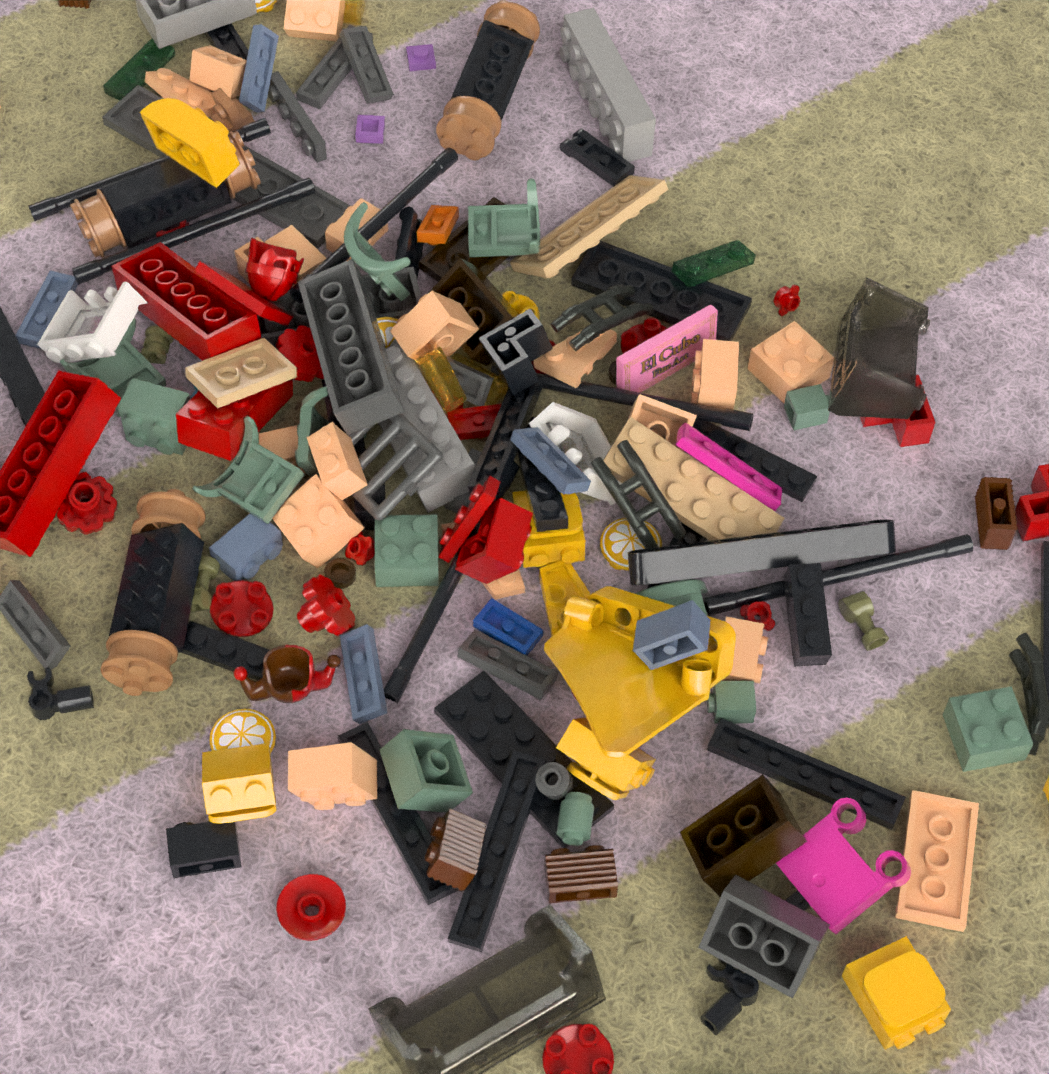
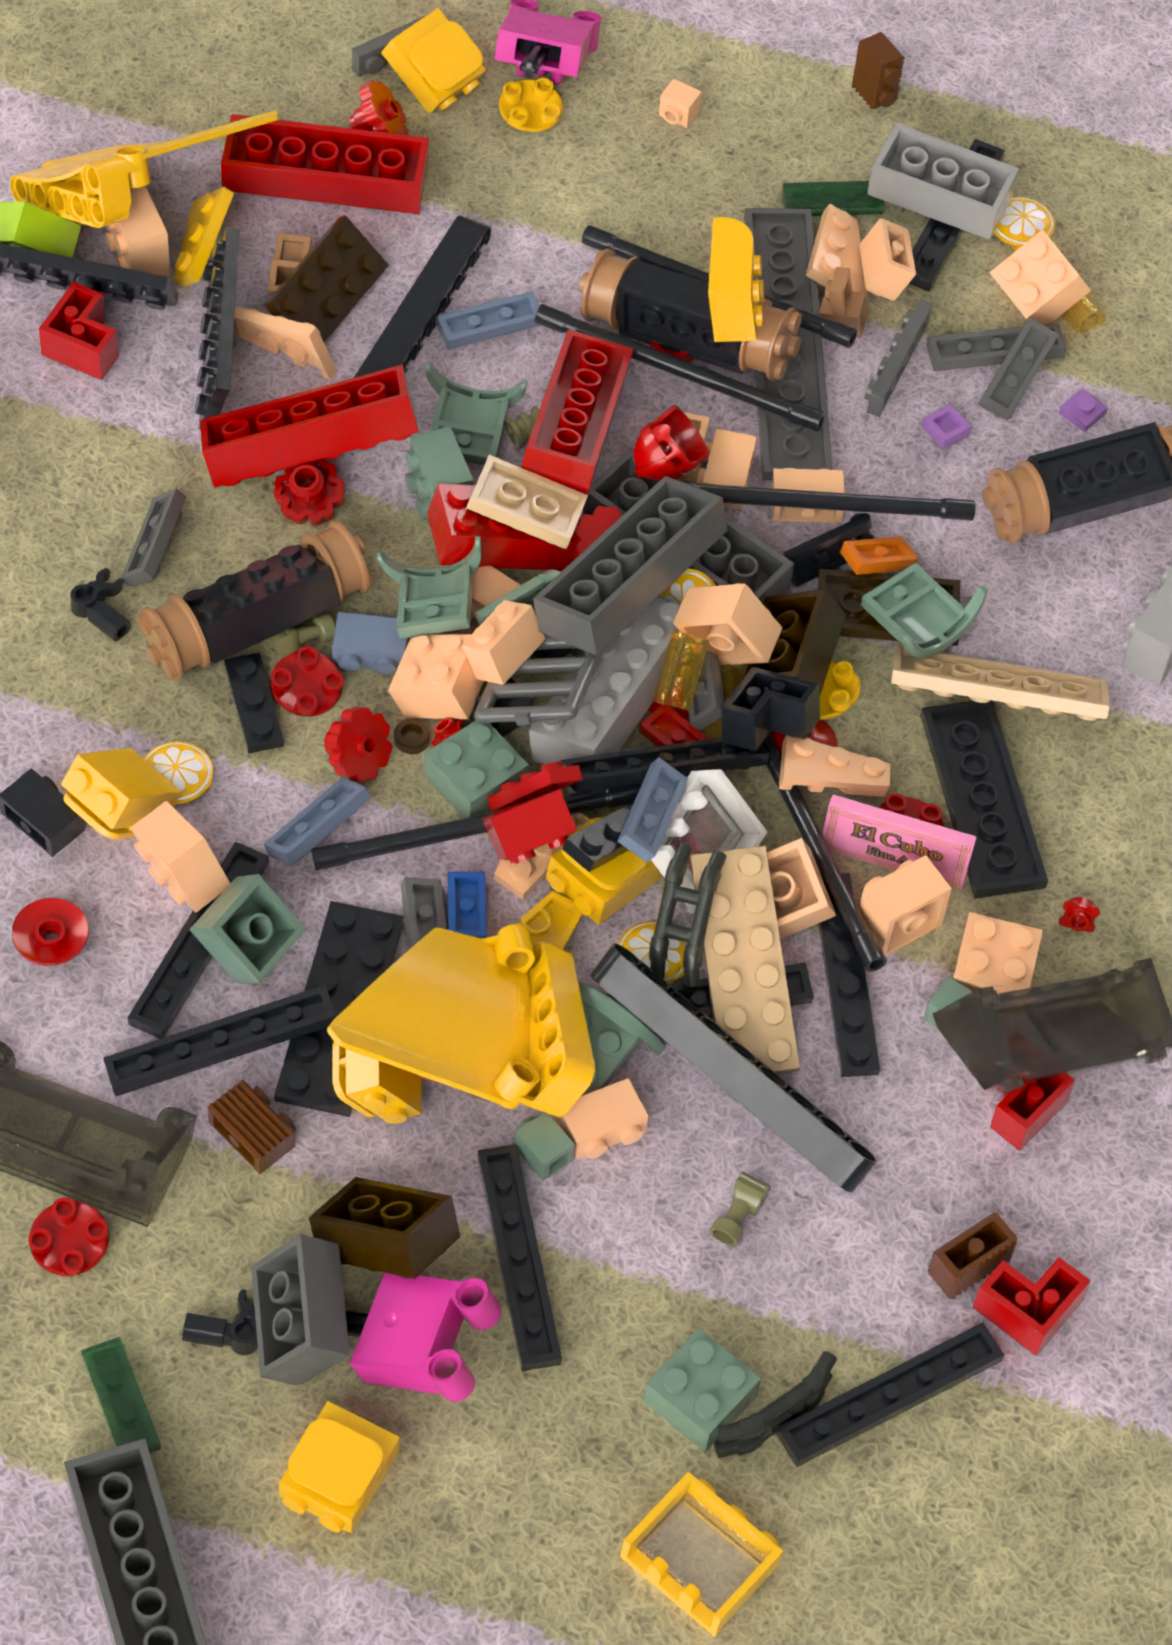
camera: 50 degrees right, 0 degrees up
(90, 330) = (491, 358): white window -> none
(243, 293) = (613, 444): red tile -> none
(258, 68) = (913, 284): sand blue plate -> none
(287, 675) = (262, 761): reddish brown piece -> none
(370, 260) = (746, 517): sand green piece -> none
(456, 849) = (189, 1002): brick -> none
(561, 788) = (312, 1035): dark grey brick -> none
(575, 818) = (298, 1081): sand green brick -> none
(597, 157) = (1103, 639): black plate -> none
(597, 324) = (870, 762): pearl dark grey piece -> none
(671, 635) = (529, 1022): sand blue brick -> none
(713, 263) = (1061, 820): clear green plate -> none
(729, 466) = (803, 976): dark pink tile -> none
(761, 609) = (664, 1102): red plate -> none
(807, 614) = (692, 1148): black brick -> none
(940, 856) = (517, 1428): light nougat plate -> none
(944, 549) = (895, 1237): black piece -> none

